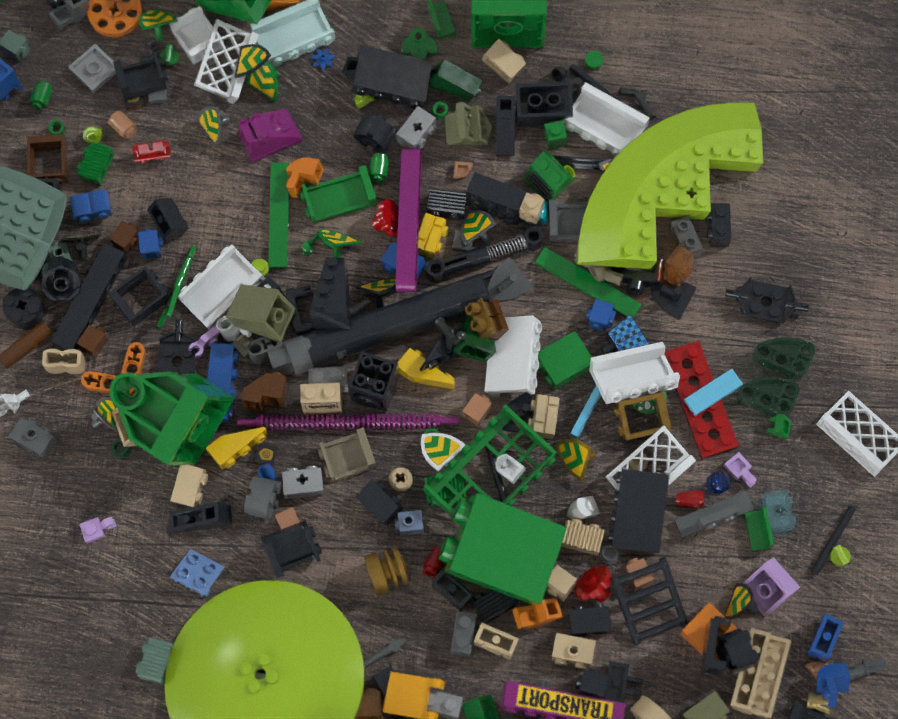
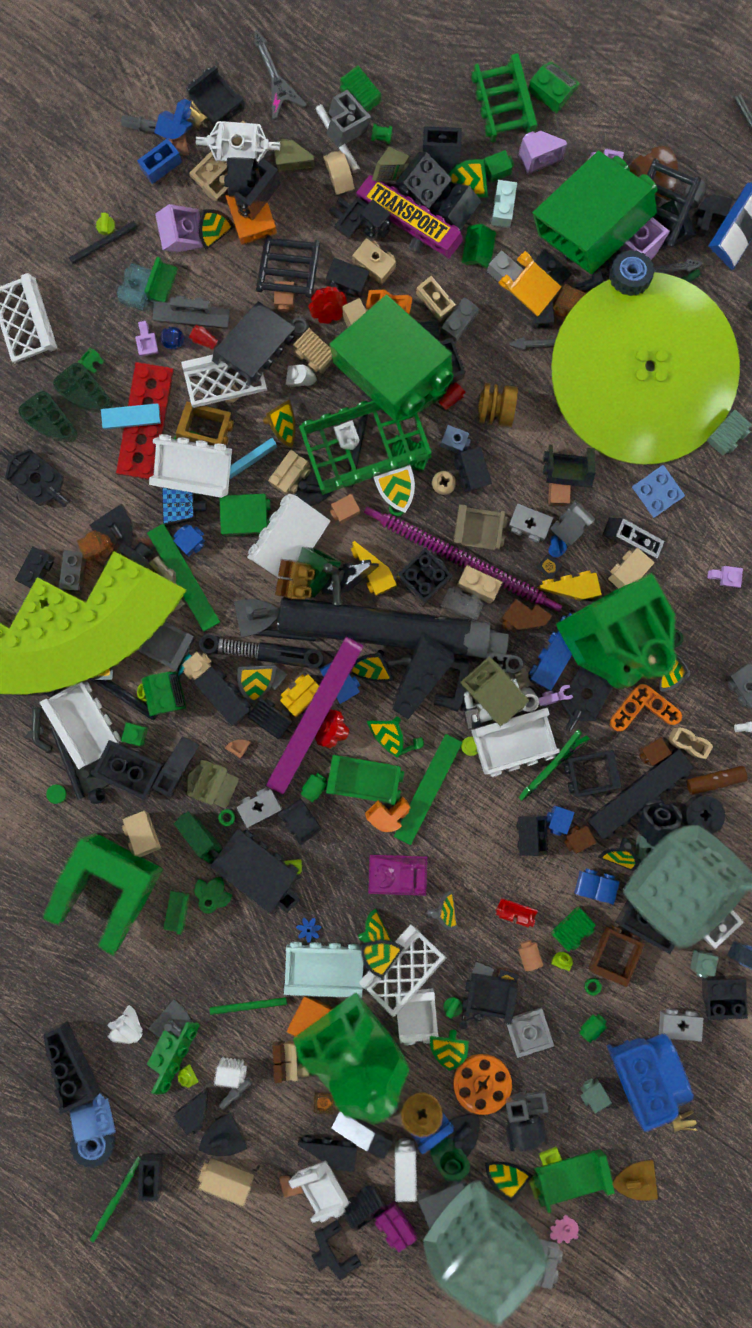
camera: 160 degrees left, 15 degrees up
(749, 699) = (253, 141): none -> white plate

